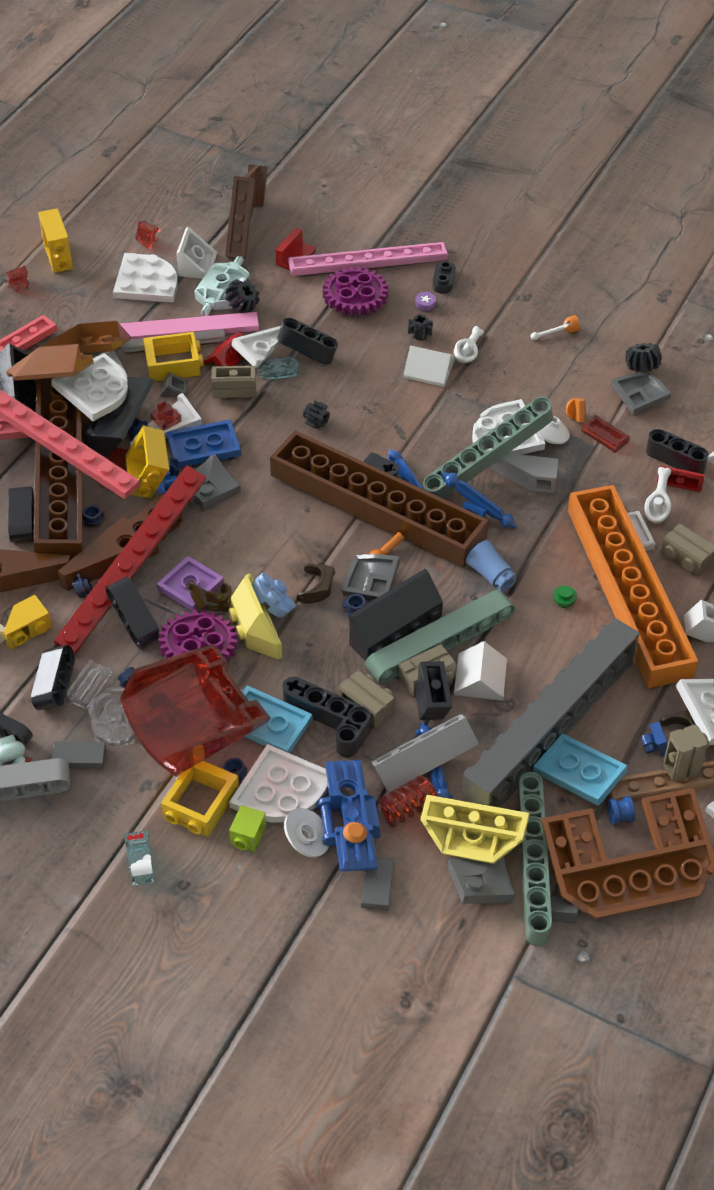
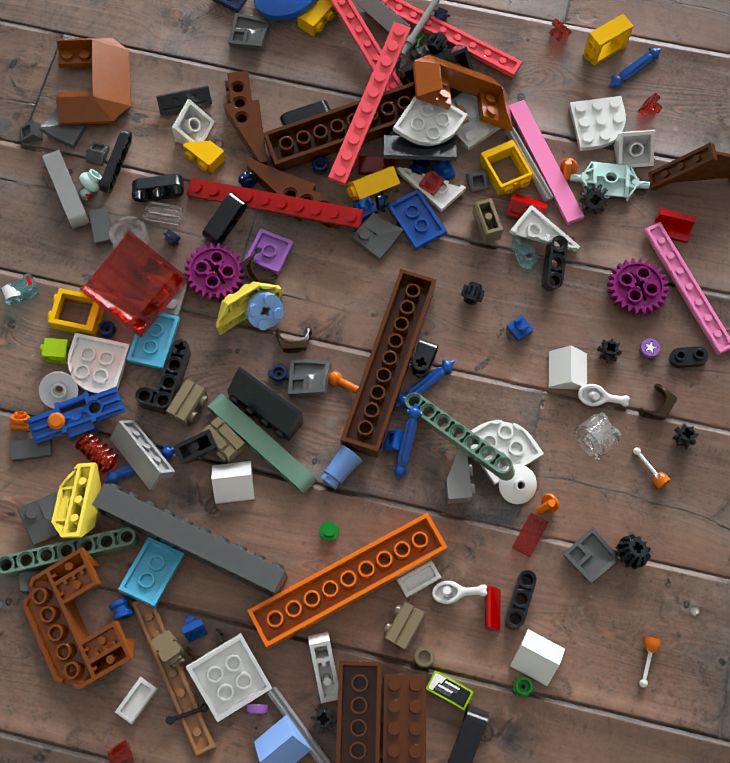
camera: 75 degrees right, 20 degrees up
(94, 237) = (635, 67): none -> blue wheel
(146, 408) = (444, 170): none -> blue tile
(192, 309) = (568, 166): none -> orange plate
(335, 889) = (19, 421): none -> orange plate
(369, 390) = (519, 328): none -> blue tile
(491, 299) = (662, 412): none -> dark brown helmet
(515, 352) = (597, 435): none -> clear brick
(530, 296) = (688, 432): none -> black gear

